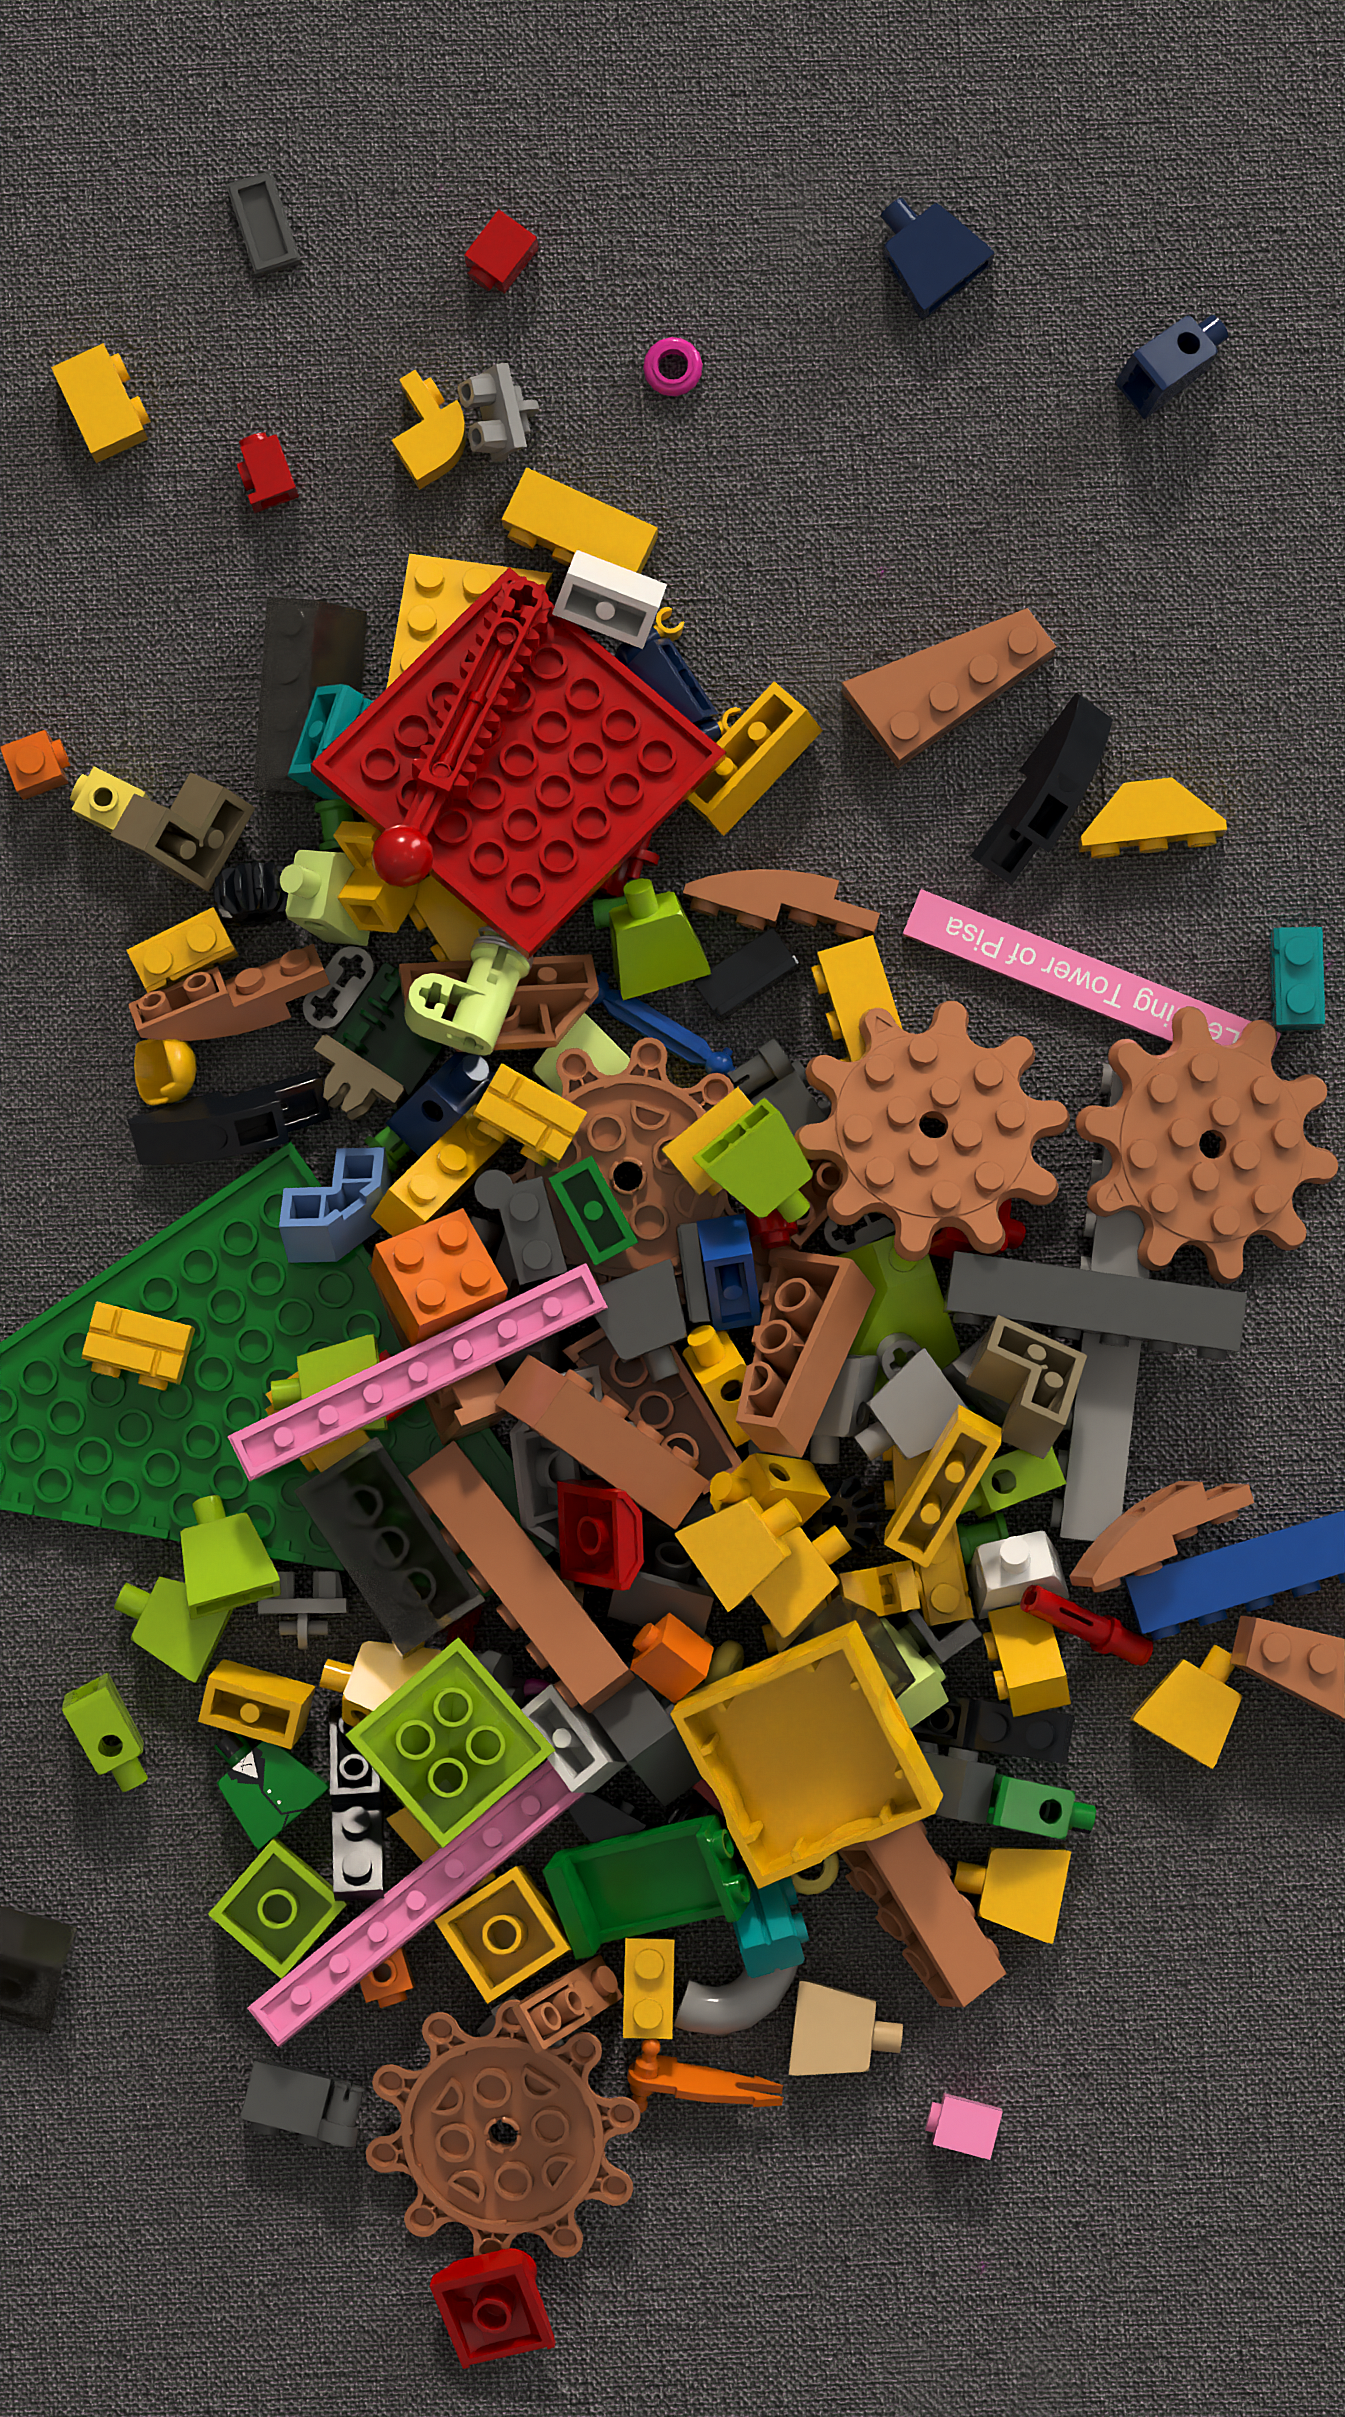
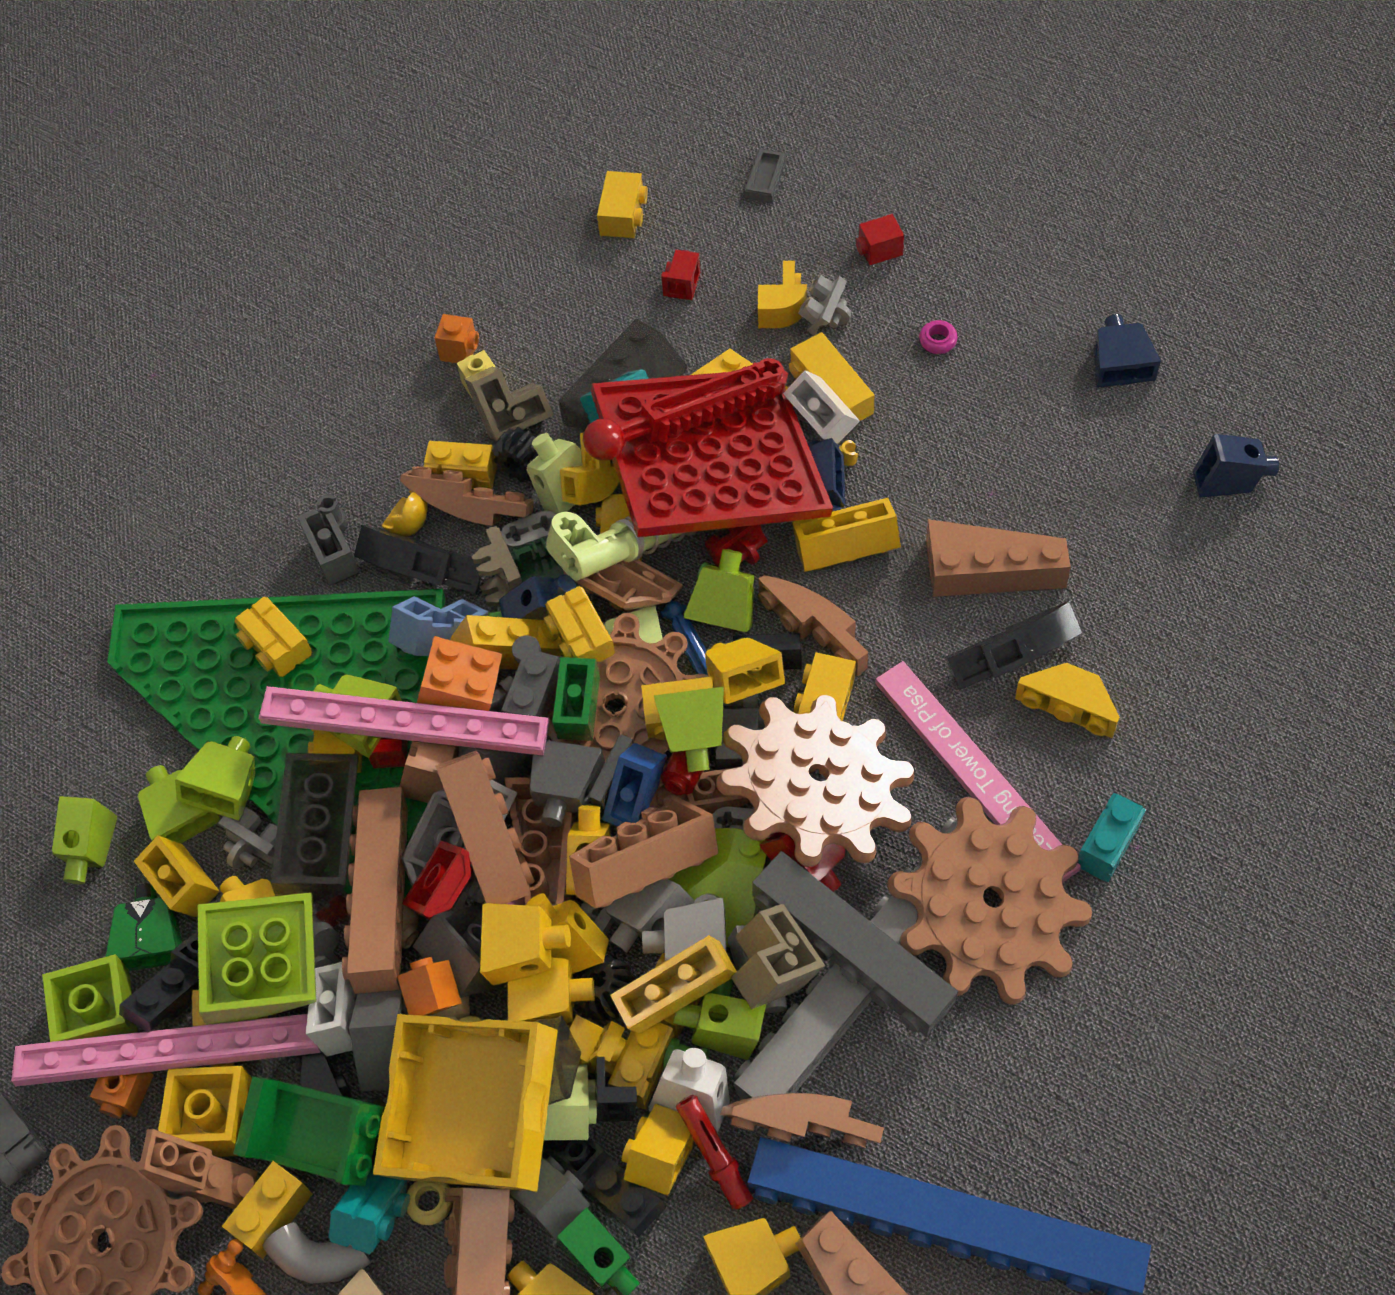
camera: 30 degrees right, 25 degrees down
(96, 1167) = (327, 540): none -> dark grey hinge
(753, 1040) = (744, 668): none -> yellow torso

